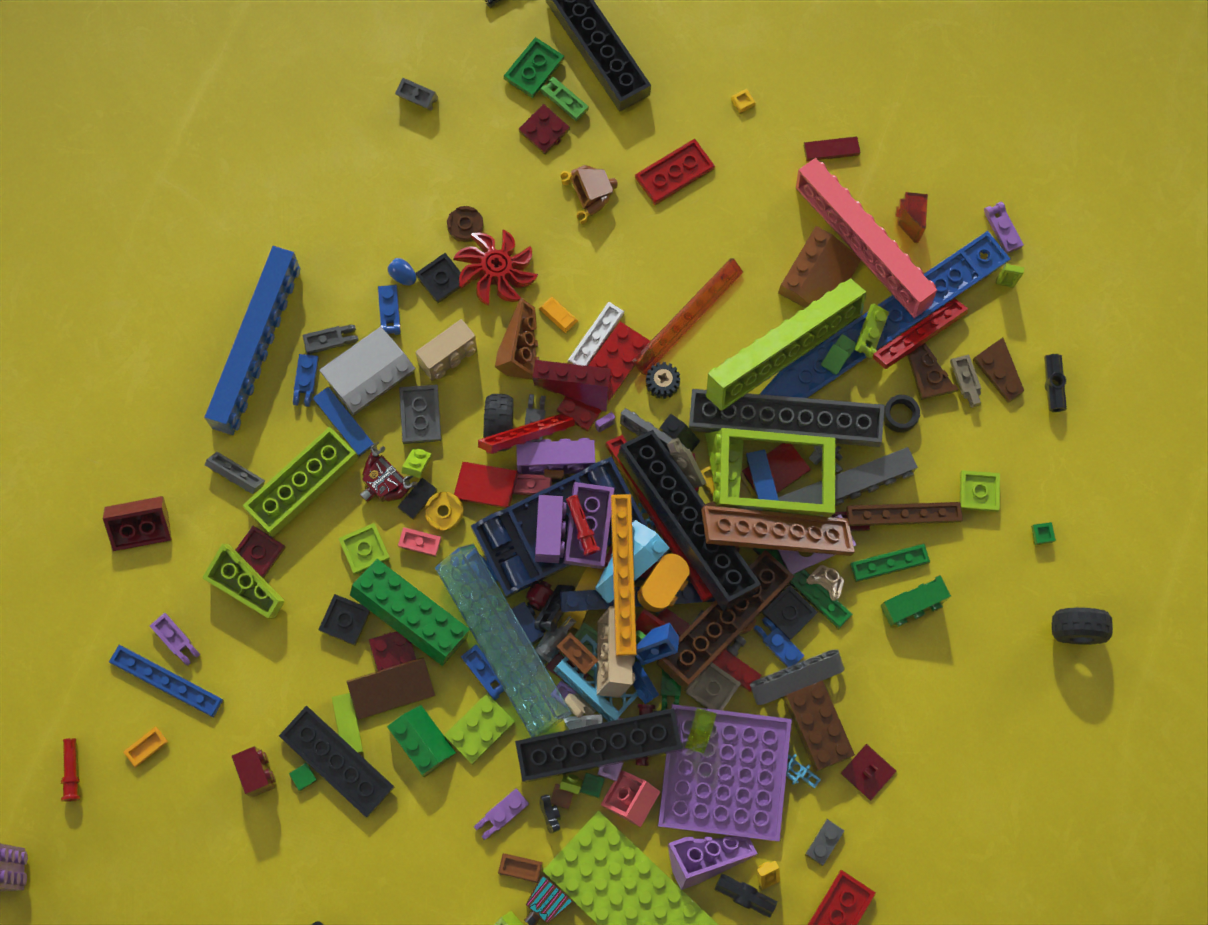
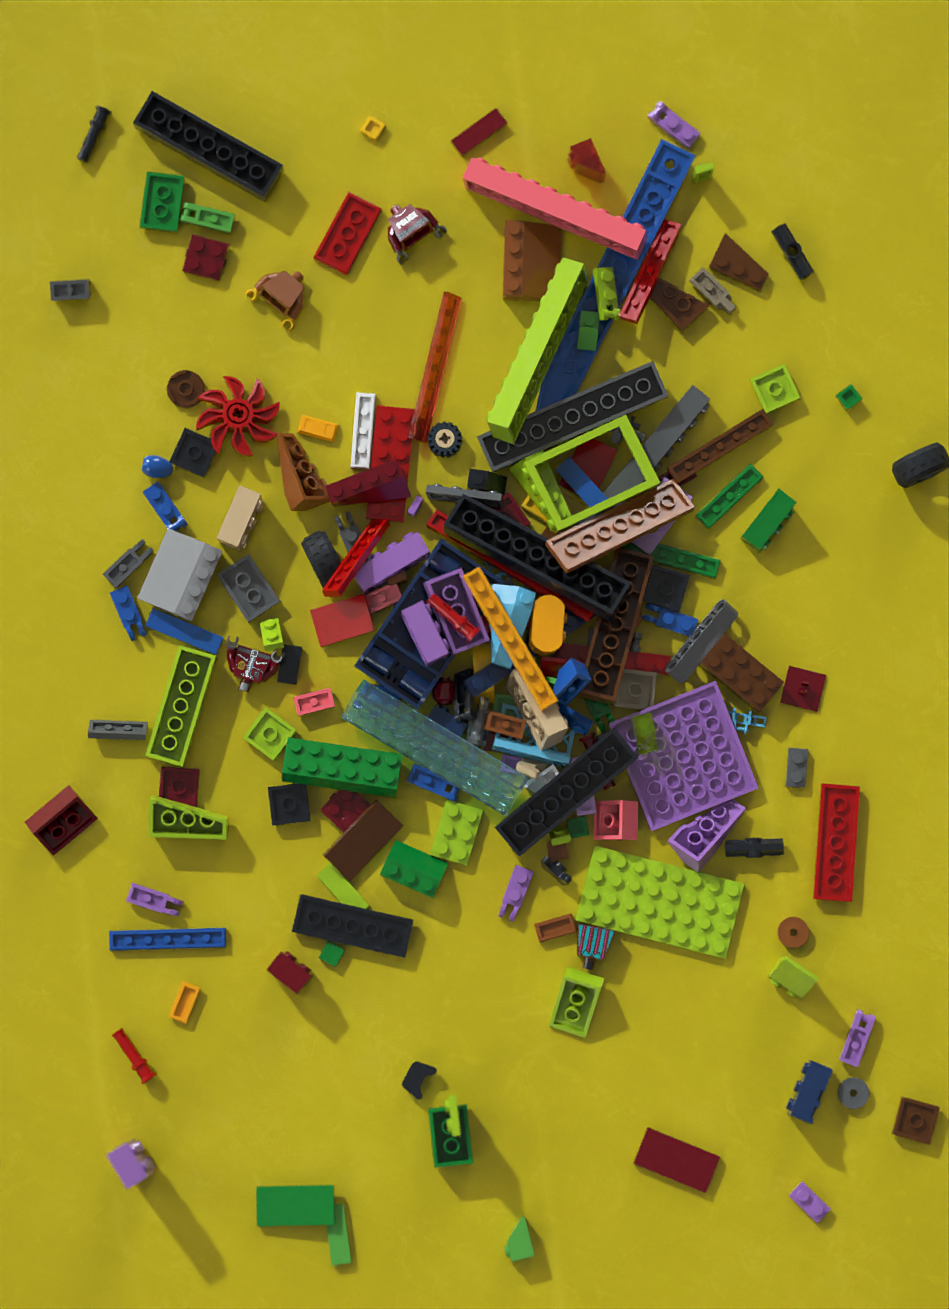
camera: 25 degrees left, 10 degrees up
(252, 341) = (63, 604): blue brick -> none
(454, 515) = (319, 674): yellow tile -> none
(686, 462) = (508, 507): dark tan hinge -> none
(731, 191) = (409, 227): none -> dark red torso
(768, 874) = (763, 820): yellow plate -> none
(828, 579) = (684, 541): tan piece -> none
(906, 400) = (675, 341): black tyre -> none

